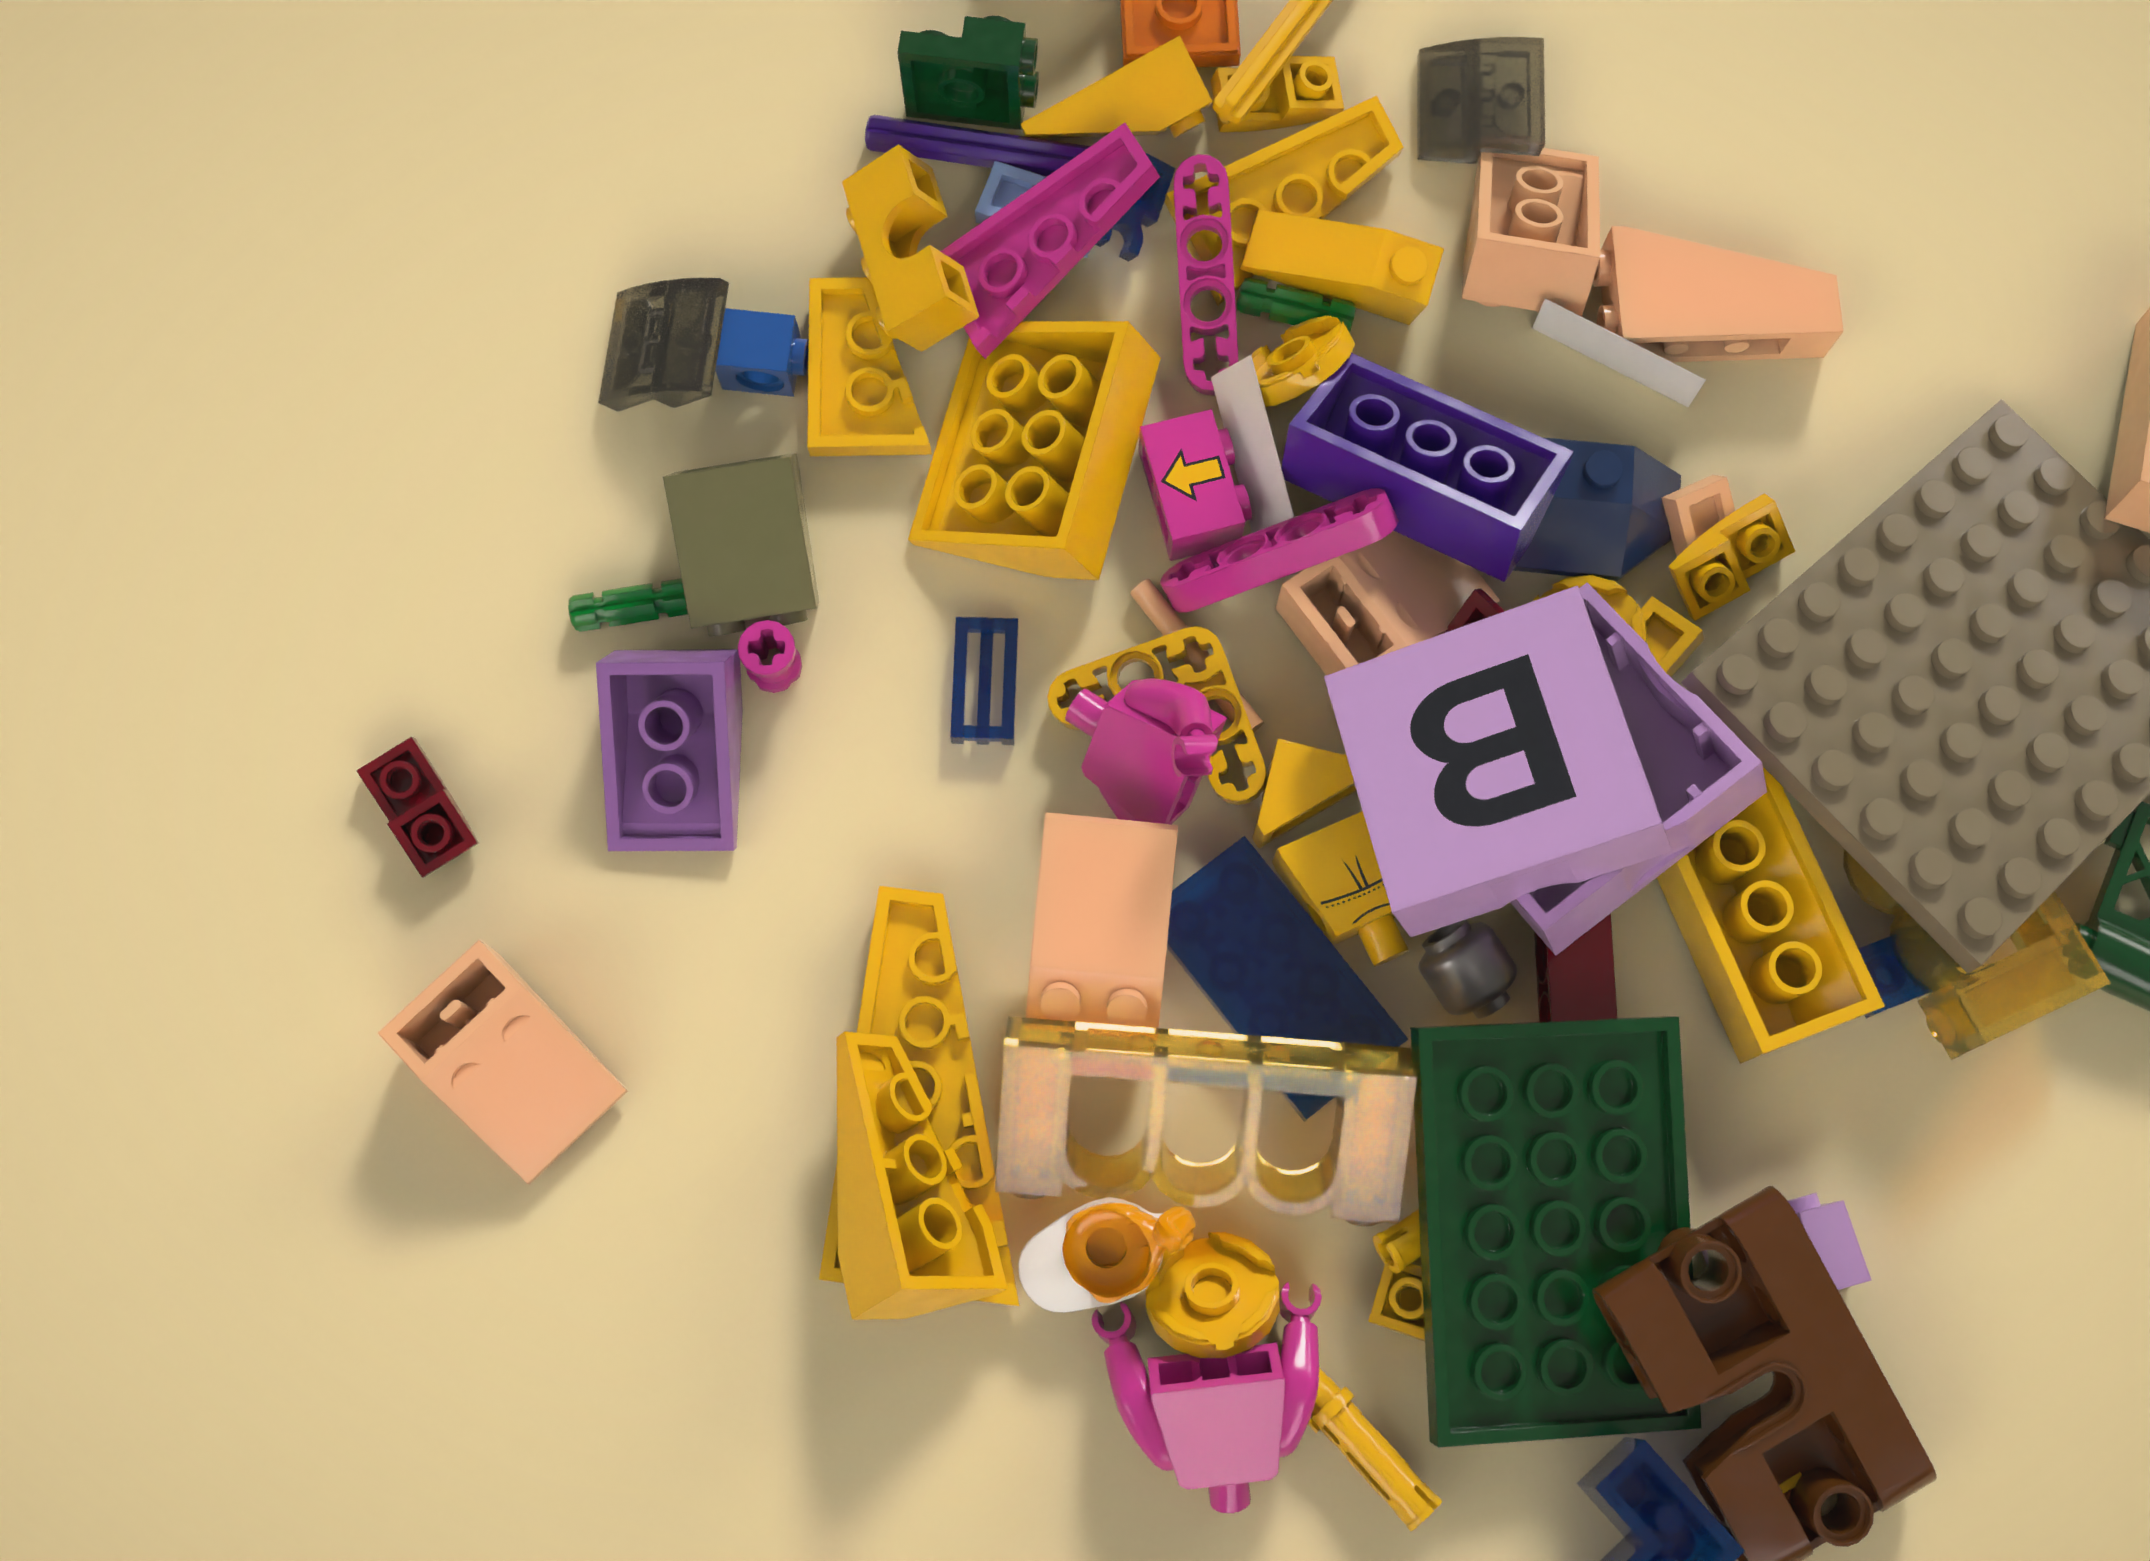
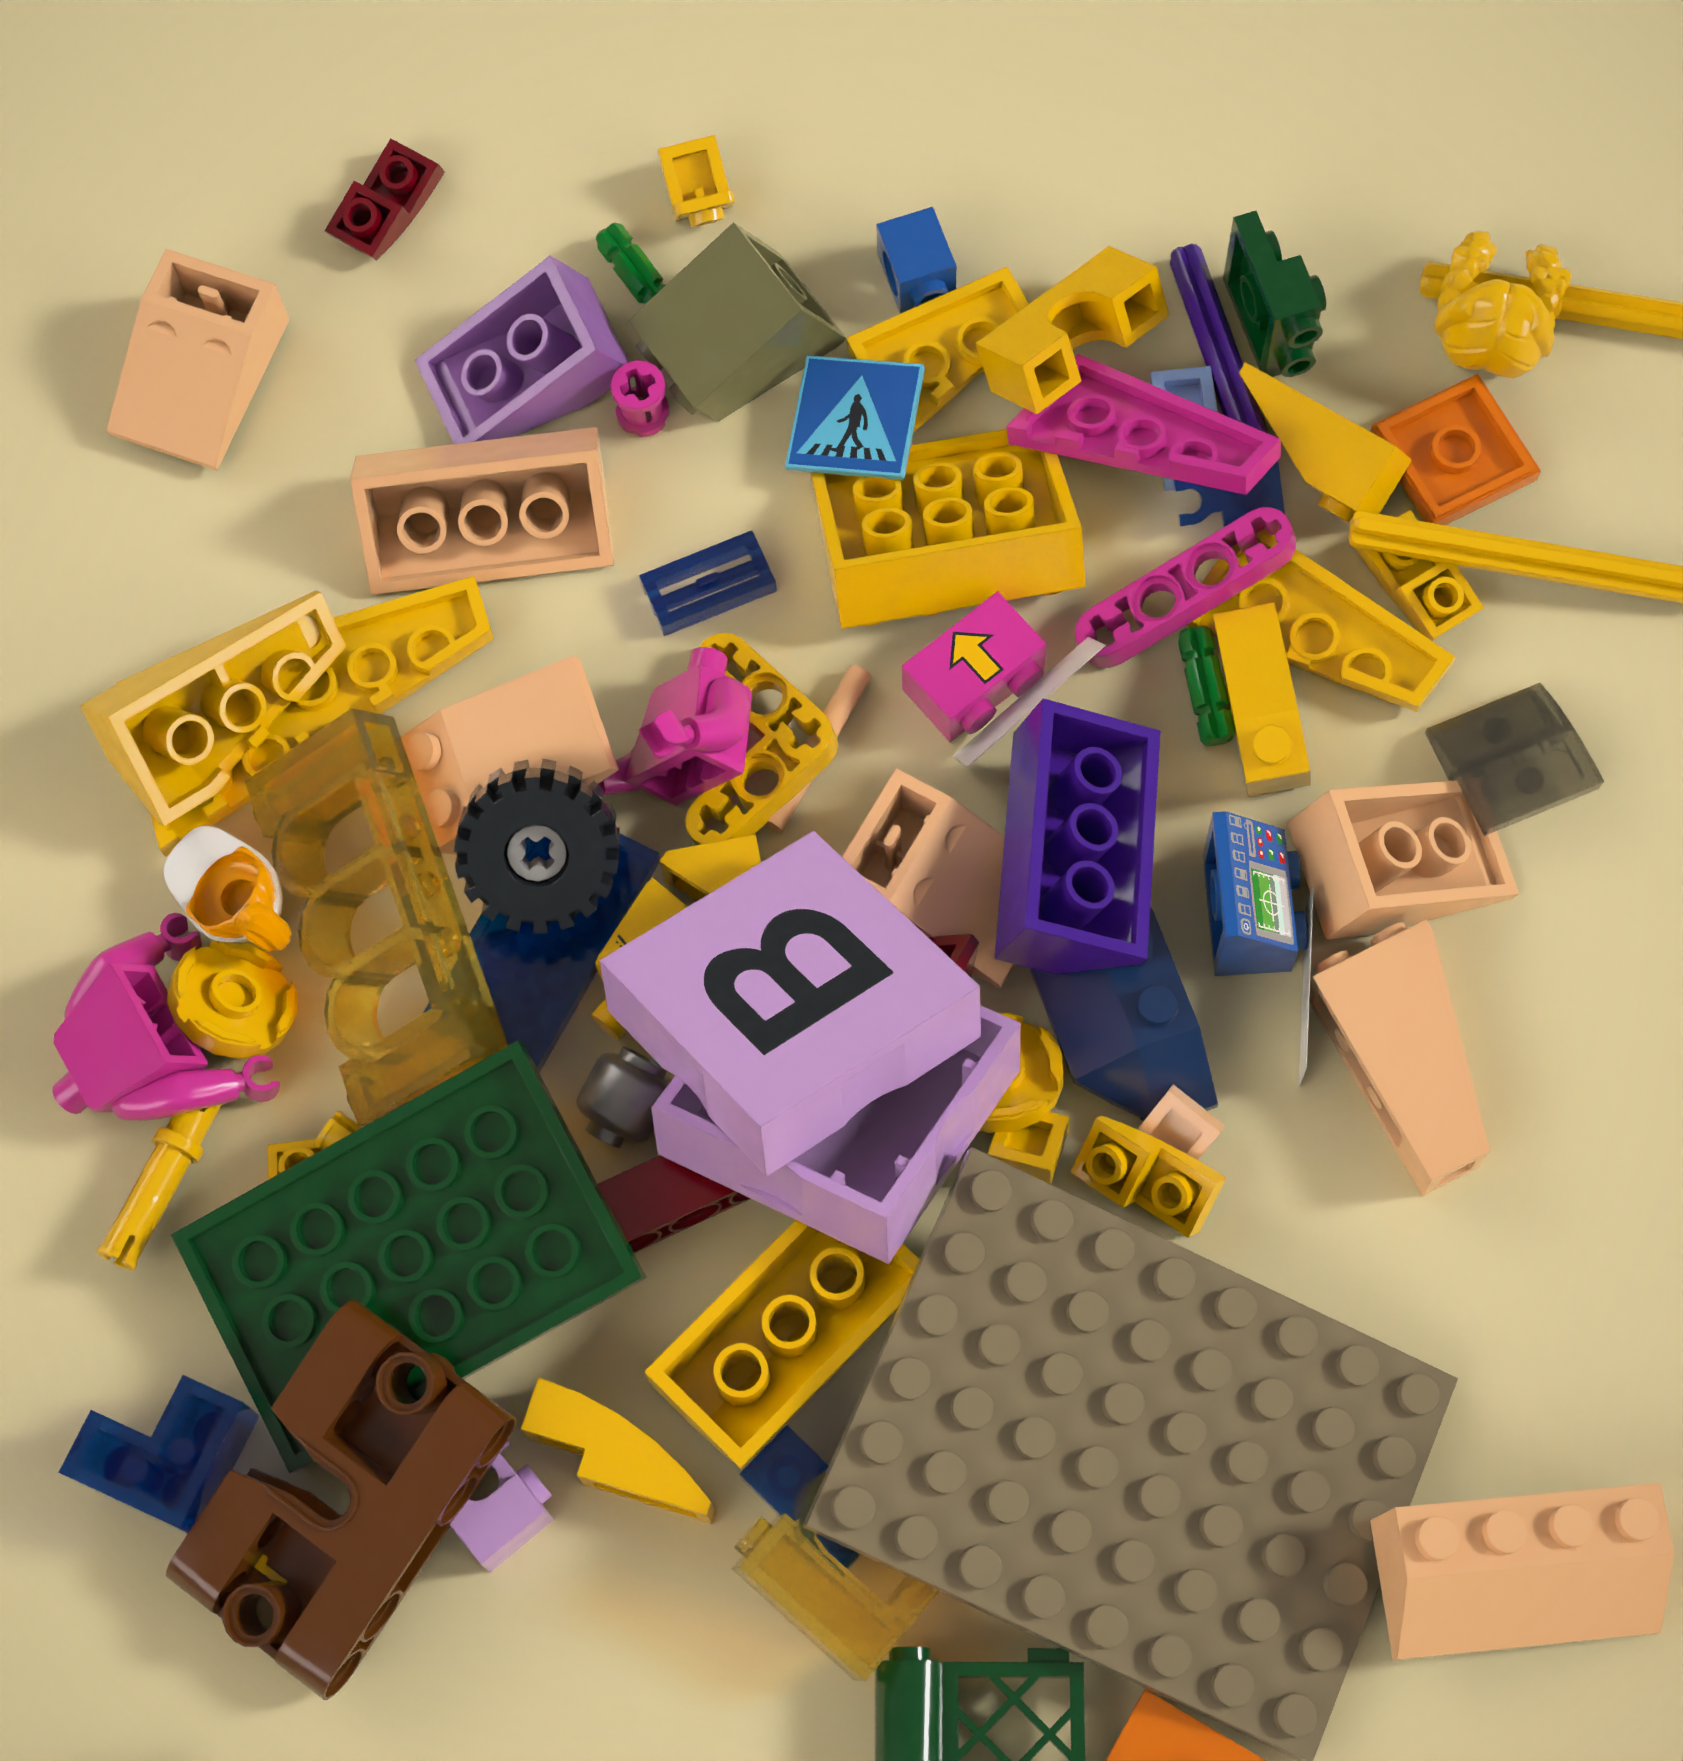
camera: 70 degrees right, 5 degrees down
(567, 508) = (696, 181): none -> yellow bracket
(664, 343) = (882, 181): clear smoke slope -> none
(810, 849) = (482, 510): none -> light nougat slope
(893, 474) = (855, 417): none -> piece
(1184, 927) = (536, 806): none -> black bush
(1280, 550) = (934, 757): dark pink beam -> none
(1304, 360) = (1133, 698): yellow tile -> none
(1522, 362) = (1251, 897): none -> blue slope
(1797, 1122) = (613, 1450): none -> yellow slope

